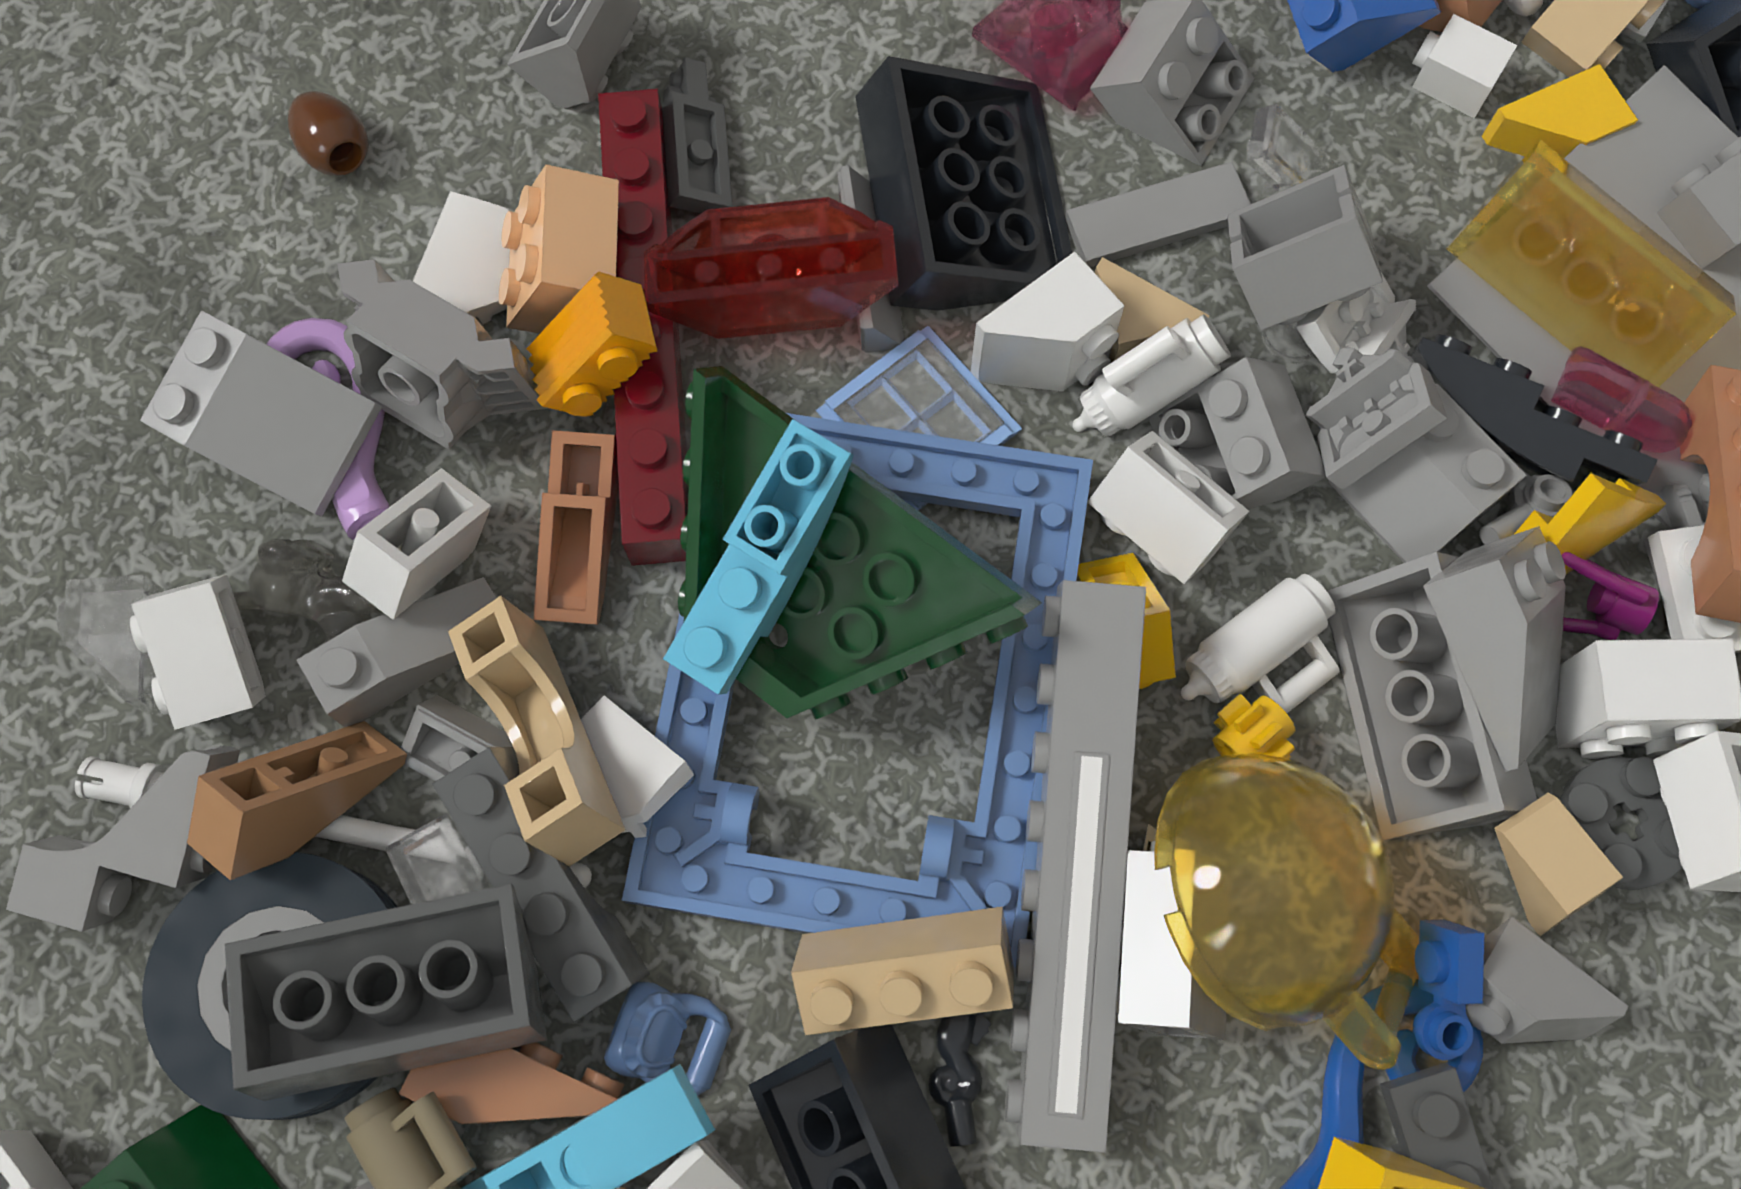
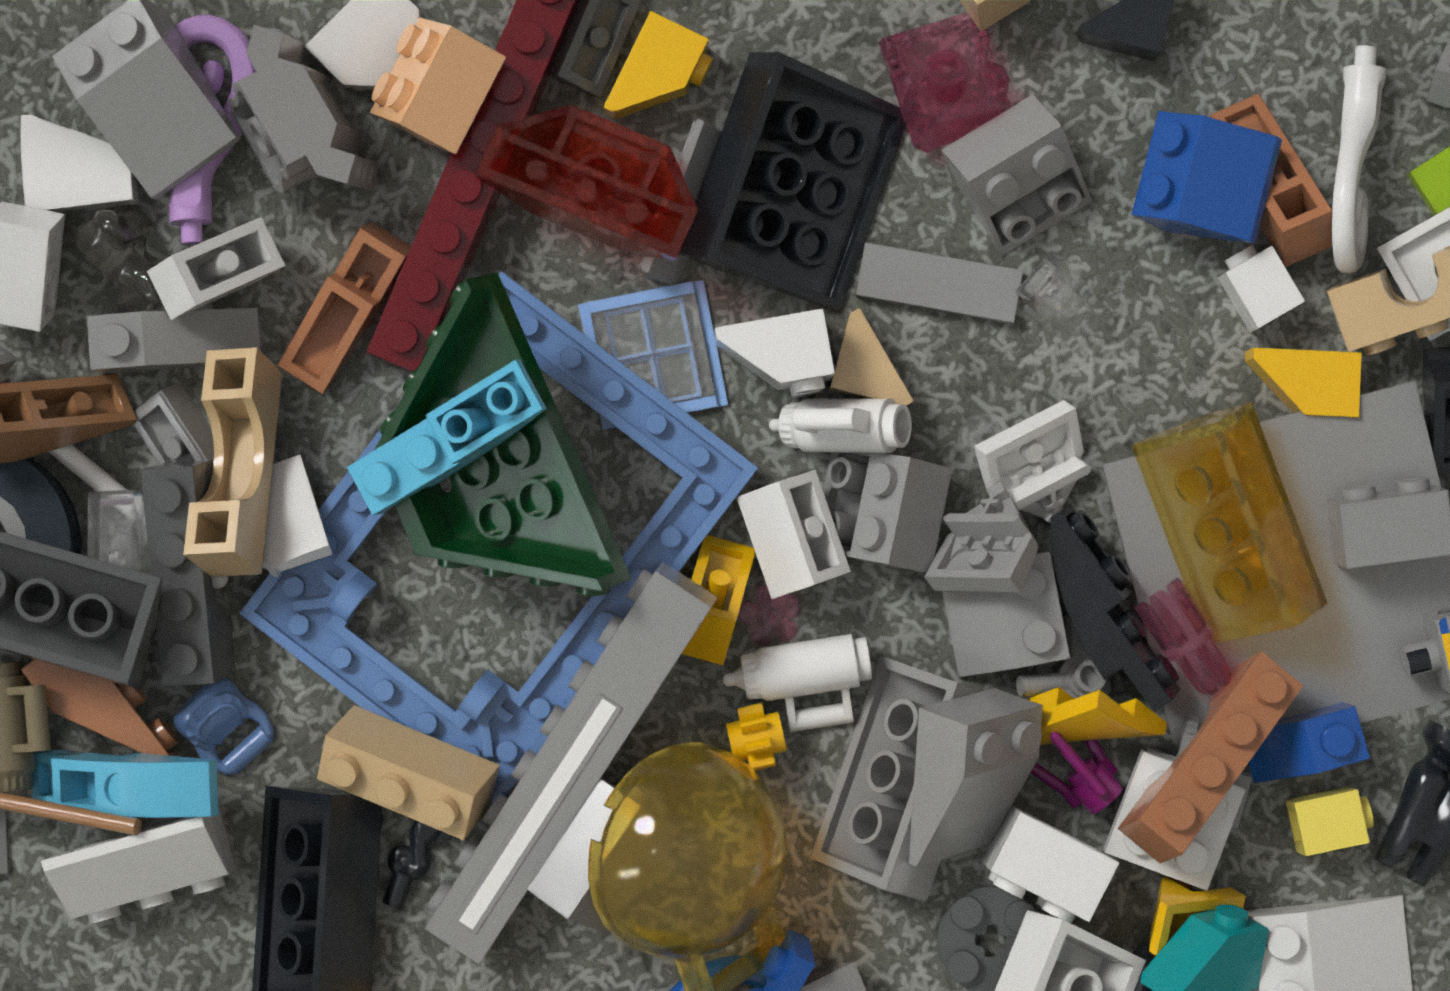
camera: 25 degrees right, 15 degrees up
(217, 533) = (71, 169): none -> white slope
(592, 345) = (418, 187): light orange brick -> none
(776, 145) = (659, 67): none -> yellow slope
(1189, 609) = (770, 616): none -> clear pink plant
(1303, 249) = (1011, 390): light grey piece -> none
(1553, 862) = (906, 939): tan slope -> none

